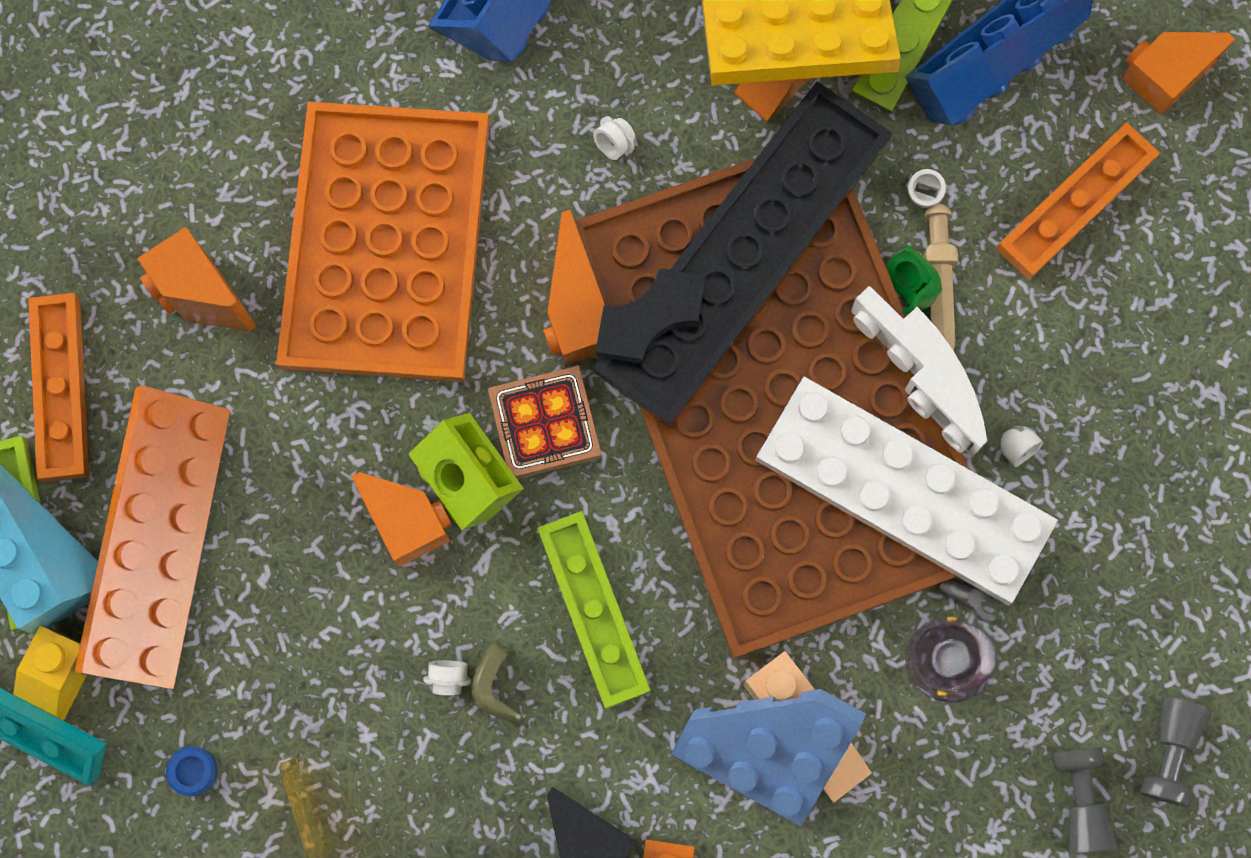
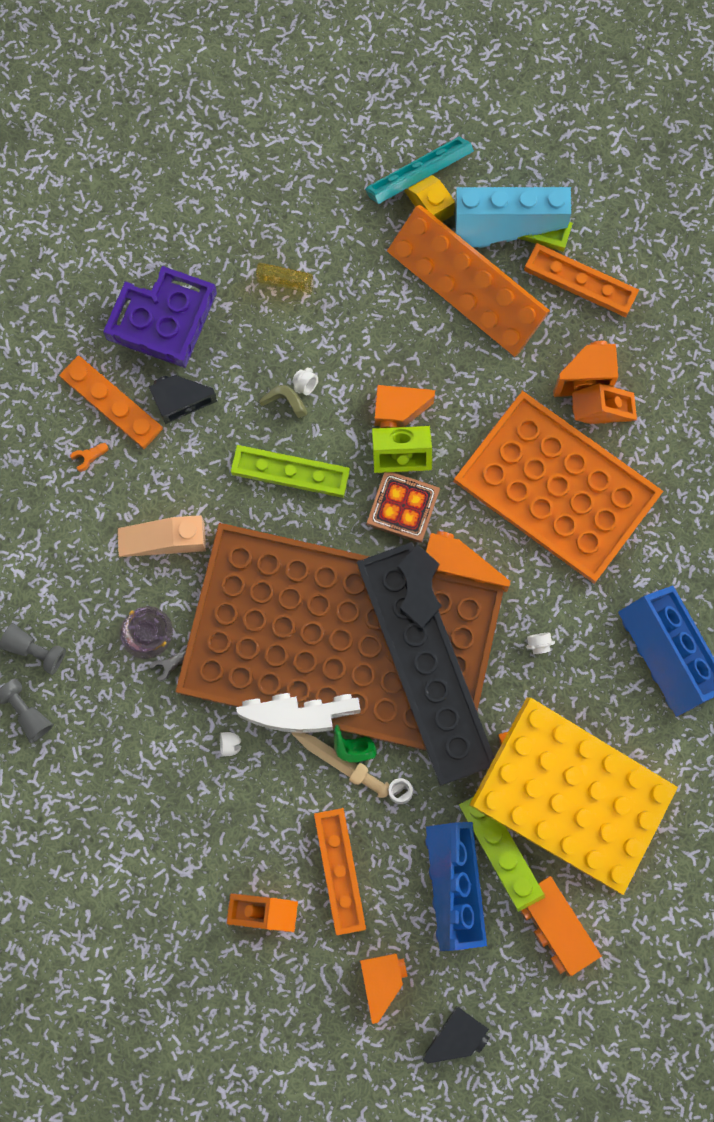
camera: 120 degrees right, 0 degrees up
(191, 771) = (340, 238): blue tile -> none
(232, 248) = (603, 405): none -> orange slope
(773, 748) = (158, 508): medium blue plate -> none
(907, 491) = (243, 662): white plate -> none
(1200, 259) = (262, 912): none -> orange slope

